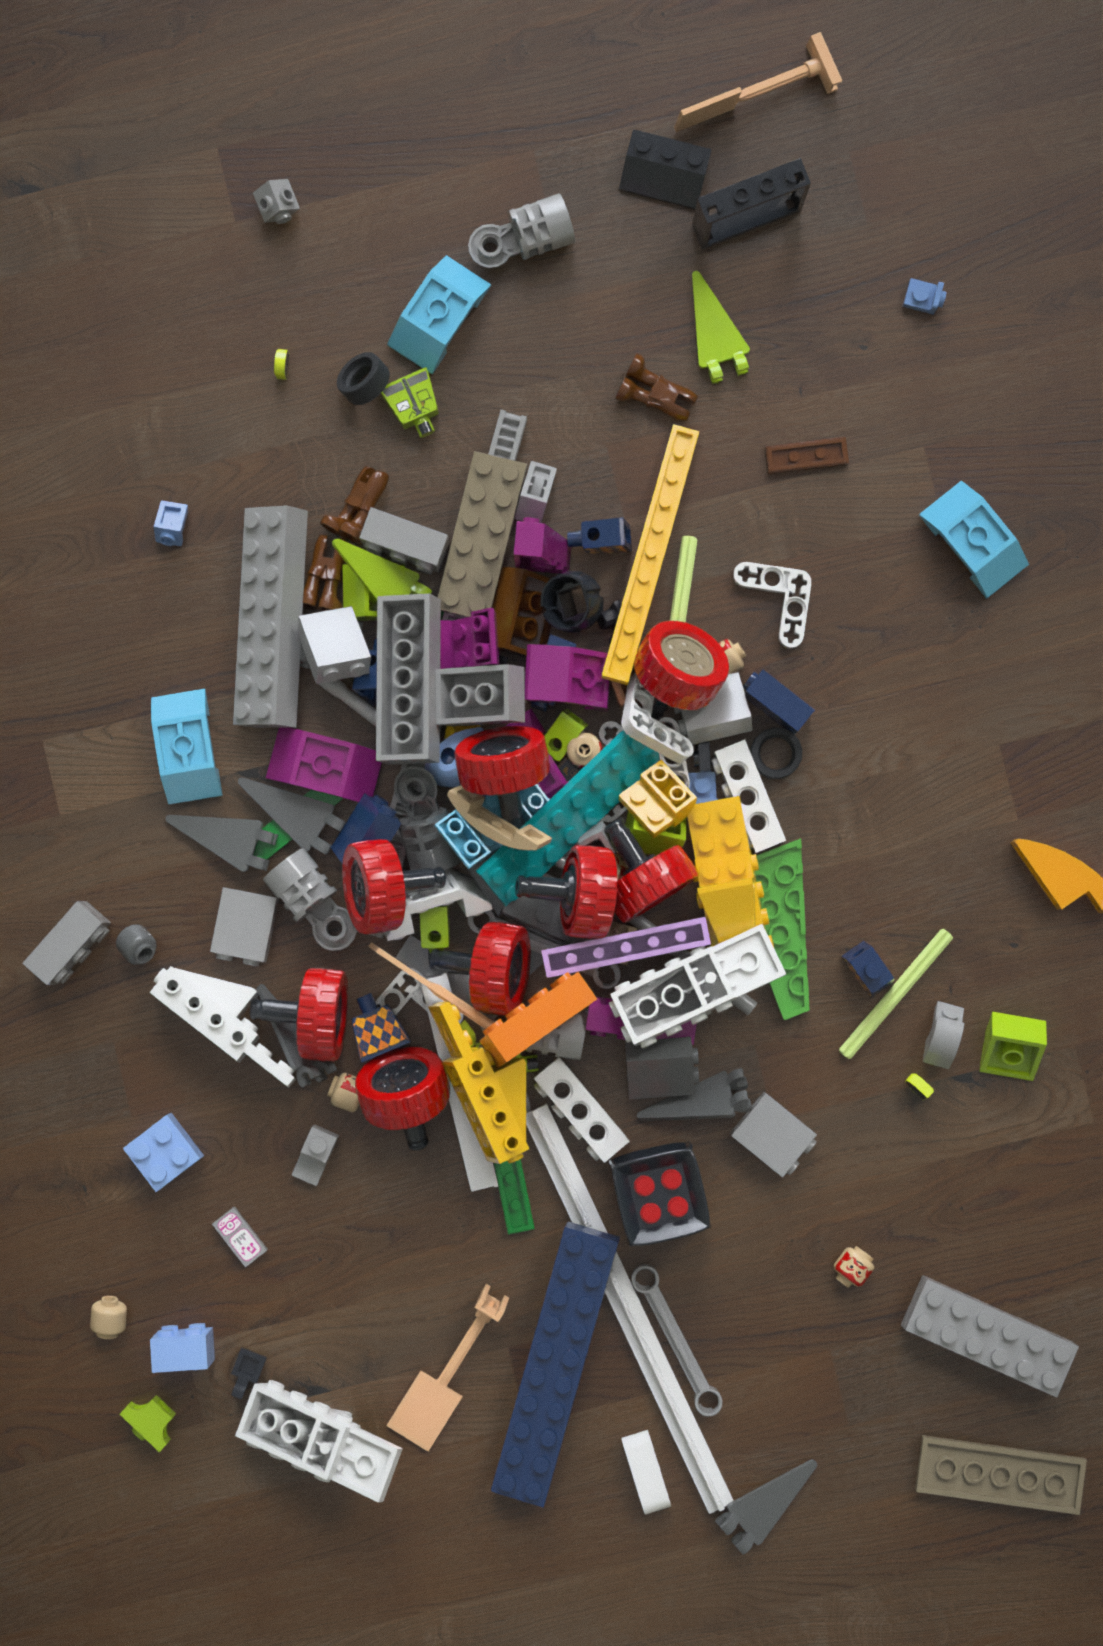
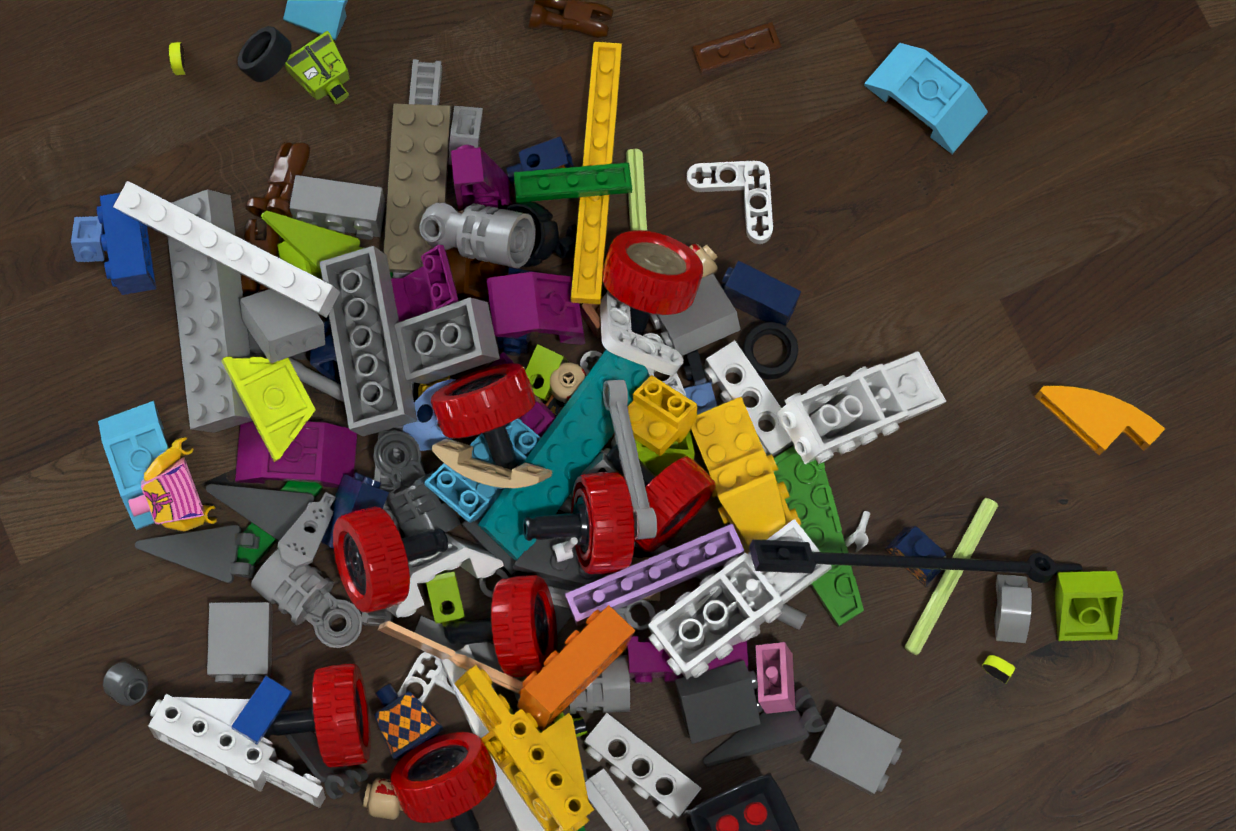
camera: 15 degrees left, 10 degrees down
(67, 943) = (50, 696): light grey brick -> none
(204, 537) = (127, 249): none -> blue brick
(206, 781) = (171, 492): none -> torso
(252, 998) = (261, 710): none -> blue tile
(294, 570) = (227, 249): none -> white brick
(312, 715) = (272, 398): none -> neon yellow wing
(312, 845) = (303, 540): none -> light grey piece
(530, 597) = (481, 233): none -> light grey cylinder
(549, 907) = (564, 550): none -> white hand
(623, 782) = (616, 400): none -> light grey piece
(625, 563) = (572, 182): none -> green tile
(716, 1056) = (775, 677): none -> bright pink brick
(758, 963) = (799, 558): none -> black bar
(820, 941) = (859, 535): none -> white hand
(845, 827) = (859, 407): none -> white wedge

